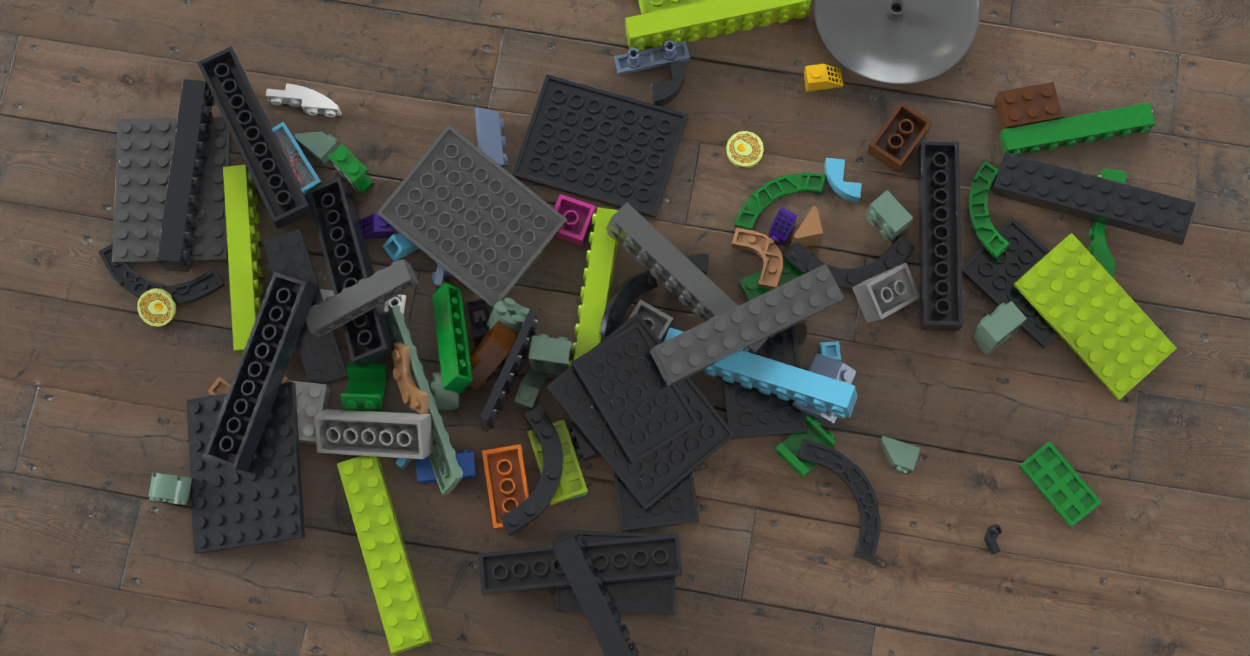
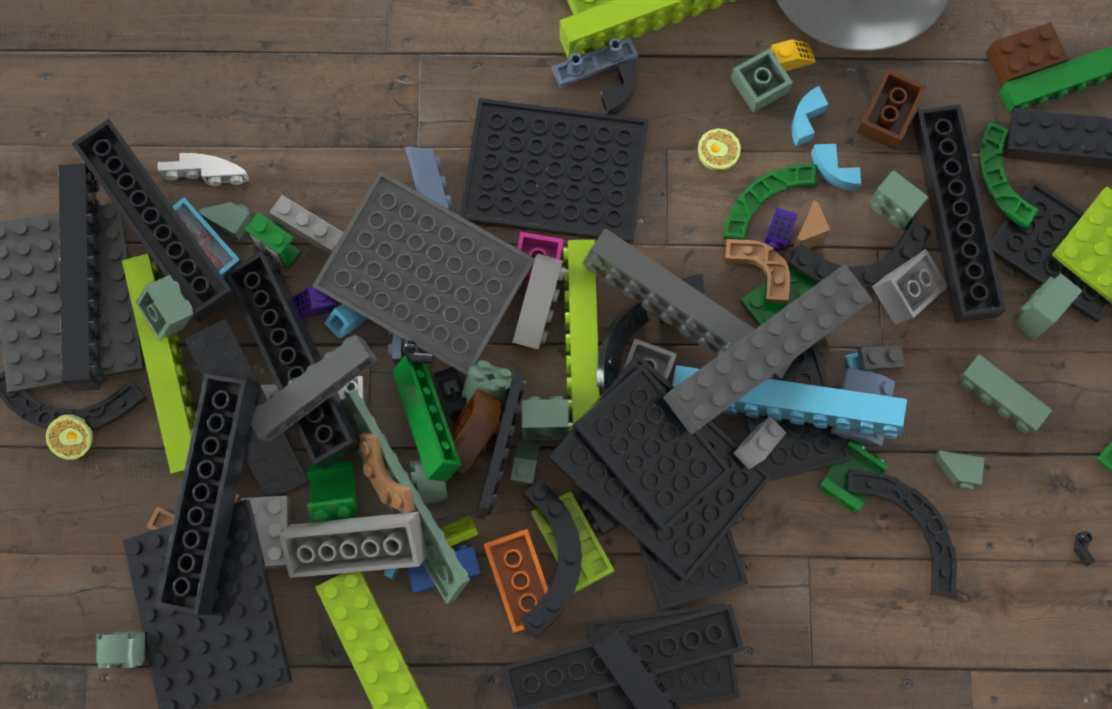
camera: 15 degrees left, 0 degrees up
(251, 211) = (164, 307): none -> sand green brick
(381, 159) = (305, 224): none -> light grey brick
(452, 284) = (415, 355): none -> black arm
(464, 437) = (459, 530): none -> lime plate
(563, 255) = (538, 301): none -> light grey brick
(728, 404) = (759, 443): none -> light grey brick
(791, 95) = (761, 80): none -> sand green brick
(829, 124) = (810, 106): none -> medium azure brick
(849, 349) = (881, 358): none -> dark grey plate
(949, 397) = (1004, 394): none -> sand green brick

